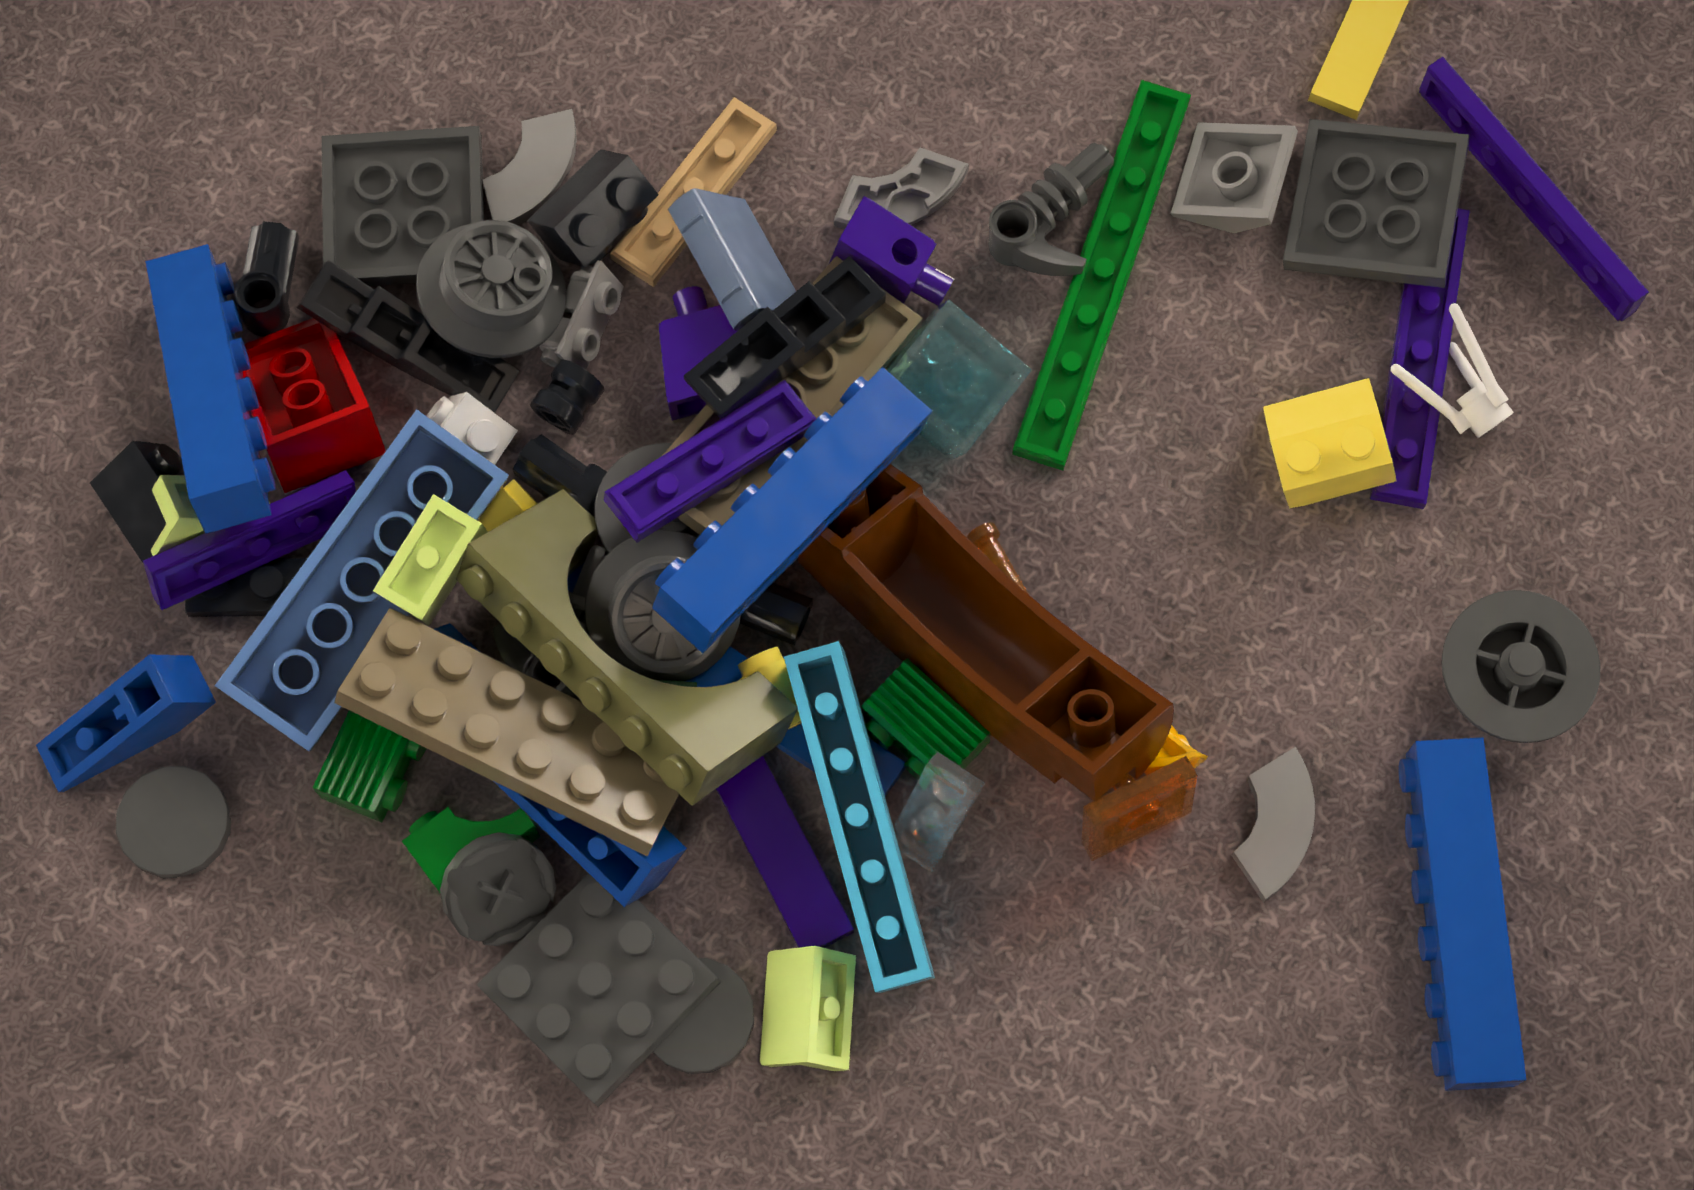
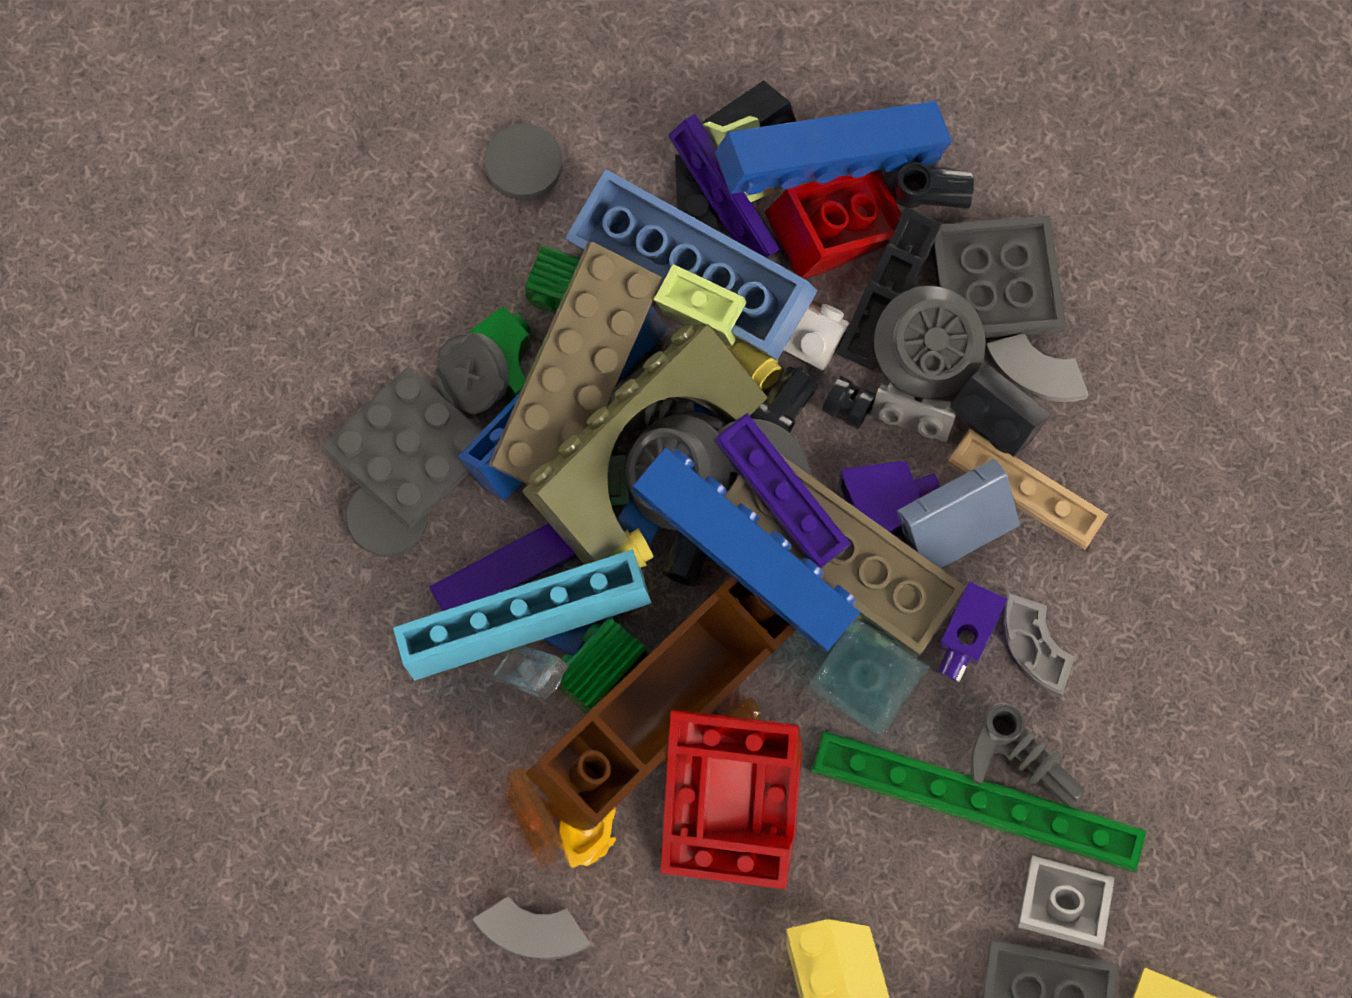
camera: 85 degrees right, 0 degrees up
(126, 718) = (594, 123): blue slope -> none
(785, 338) = (885, 544): black slope -> none
(808, 1008) = (389, 592): yellowish green panel -> none
(1116, 554) = (731, 799): none -> red slope

